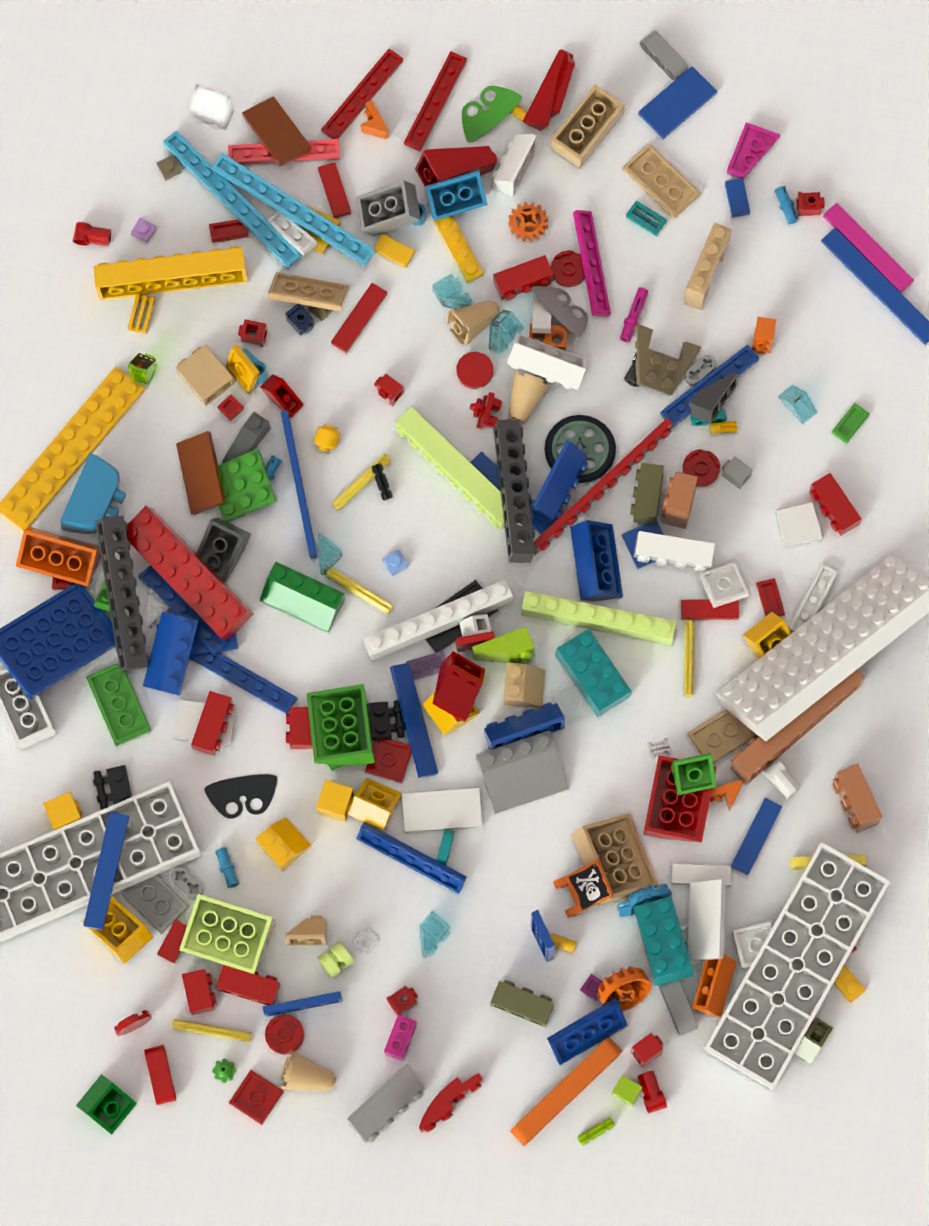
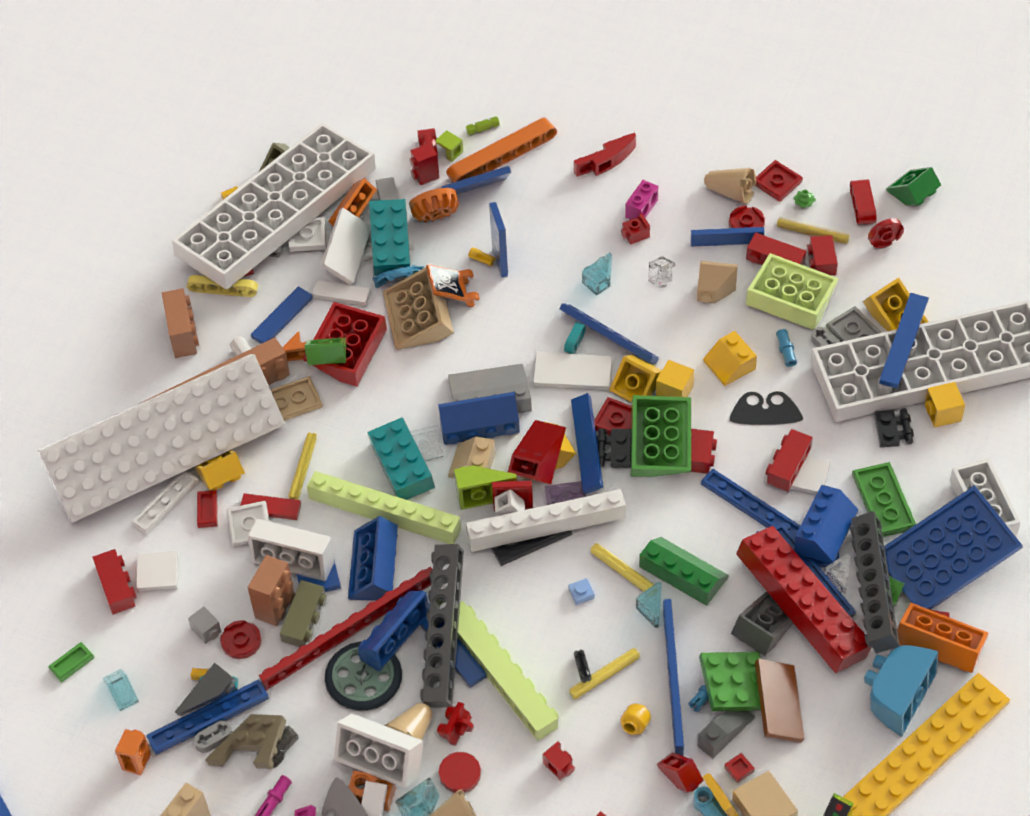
camera: 170 degrees left, 20 degrees down
(170, 947) = (842, 298): red tile -> none
(335, 959) = (690, 264): yellowish green wheel -> none
(386, 1104) = (664, 152): light grey slope -> none
(522, 1003) = (527, 214): olive brick -> none
(591, 987) = (460, 220): magenta plate -> none
(659, 748) = (352, 392): clear bush -> none

